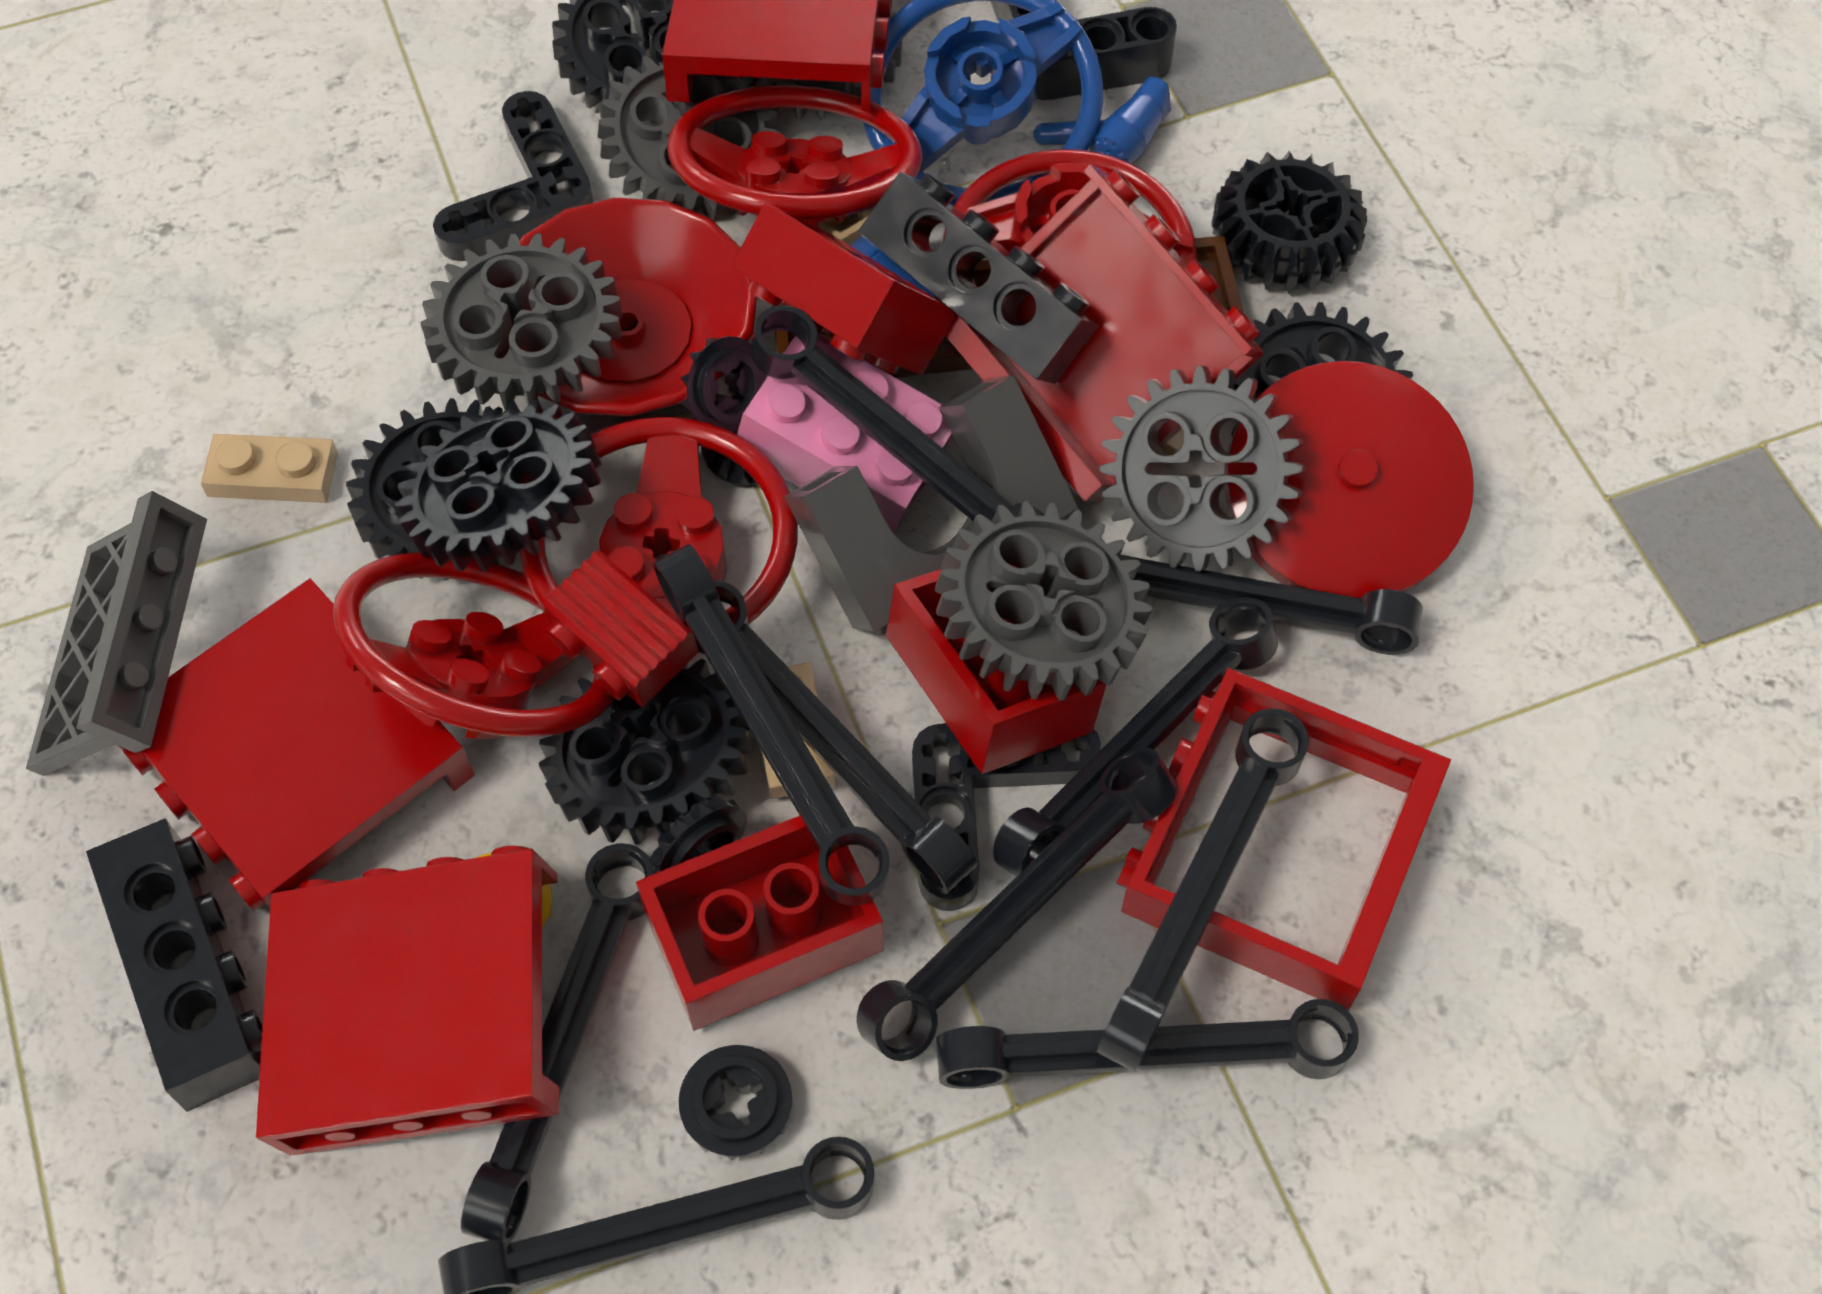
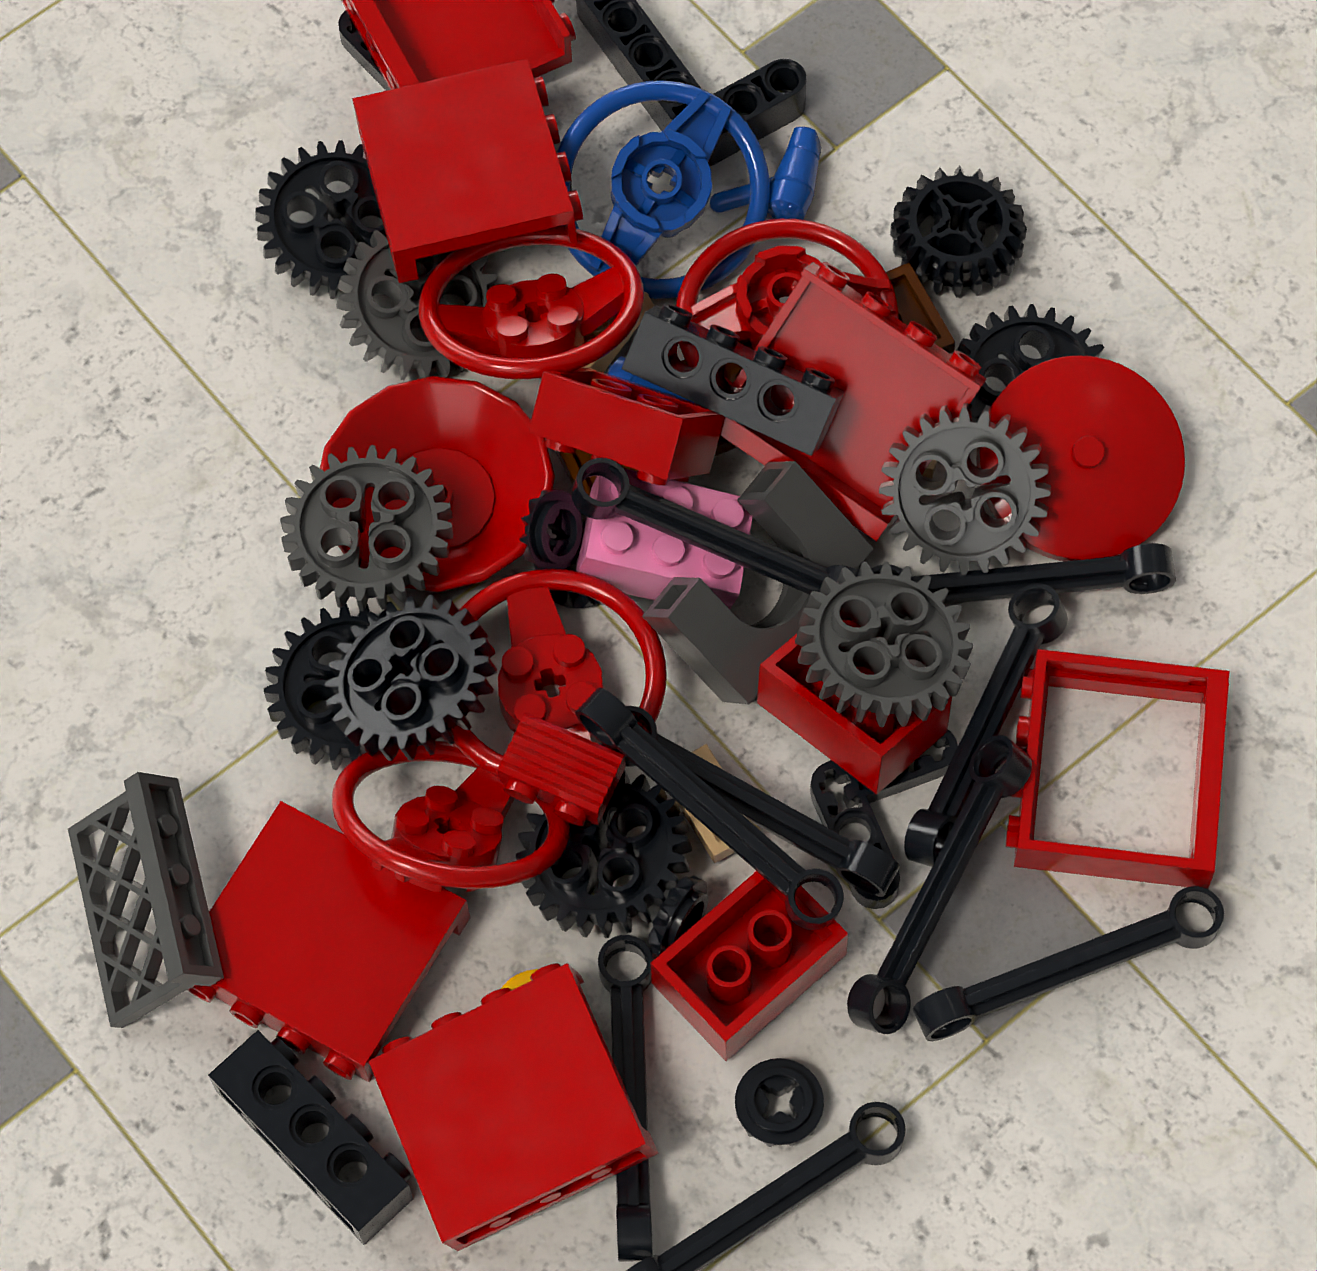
camera: 15 degrees left, 5 degrees up
(269, 468) = (187, 713): tan plate -> none
(536, 193) = (303, 394): black beam -> none
(1197, 897) = (1075, 830): black piece -> none

